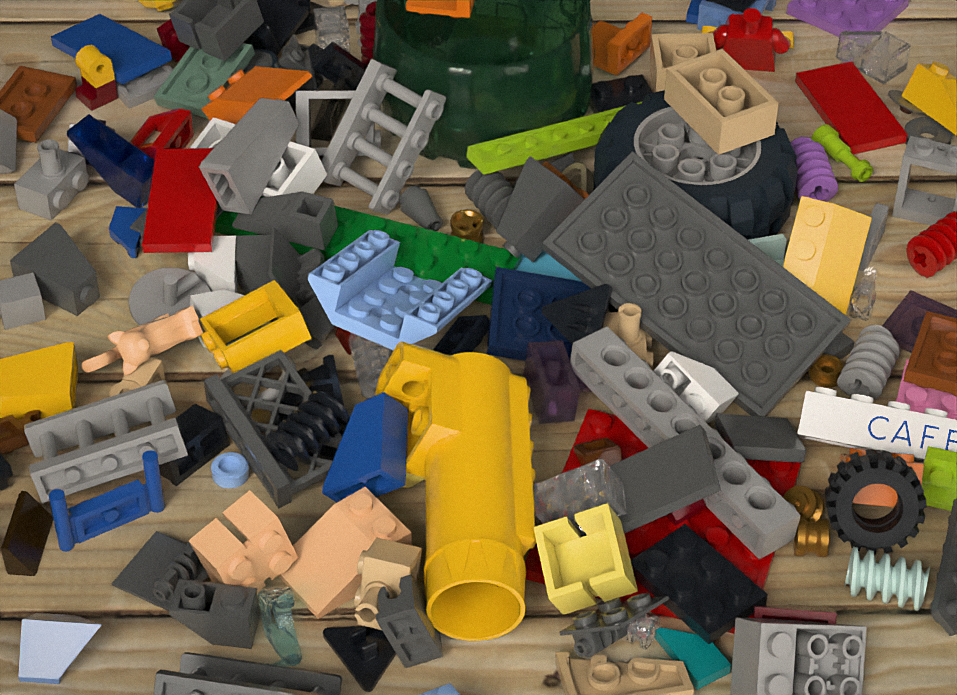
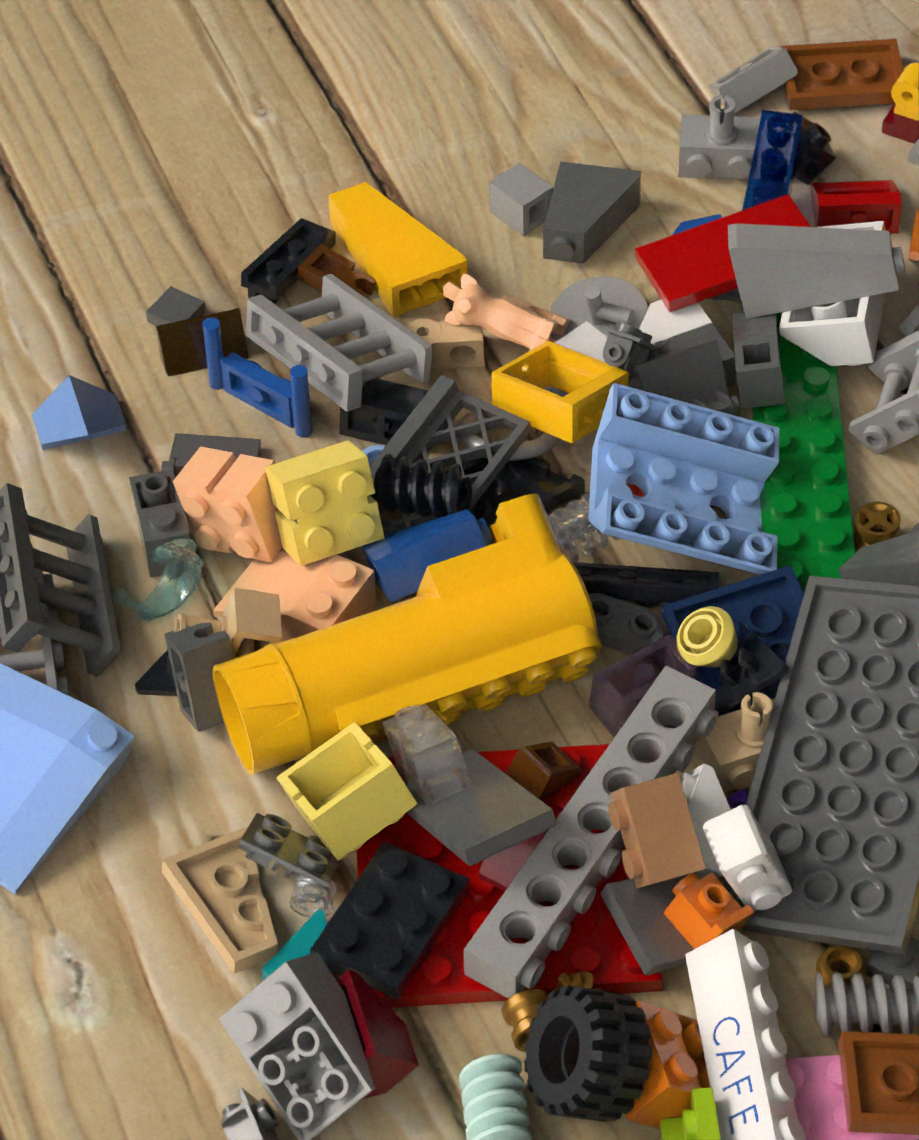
camera: 70 degrees right, 5 degrees up
(248, 273) = (627, 347): none -> dark grey hinge
(298, 479) = (328, 498): none -> light yellow piece
(420, 208) = (887, 472): dark grey cone -> none
(545, 321) = (707, 637): none -> light yellow cone
(717, 393) = (656, 830): none -> medium nougat brick
(758, 360) = (747, 858): none -> white brick
(773, 408) = (705, 909): none -> orange brick

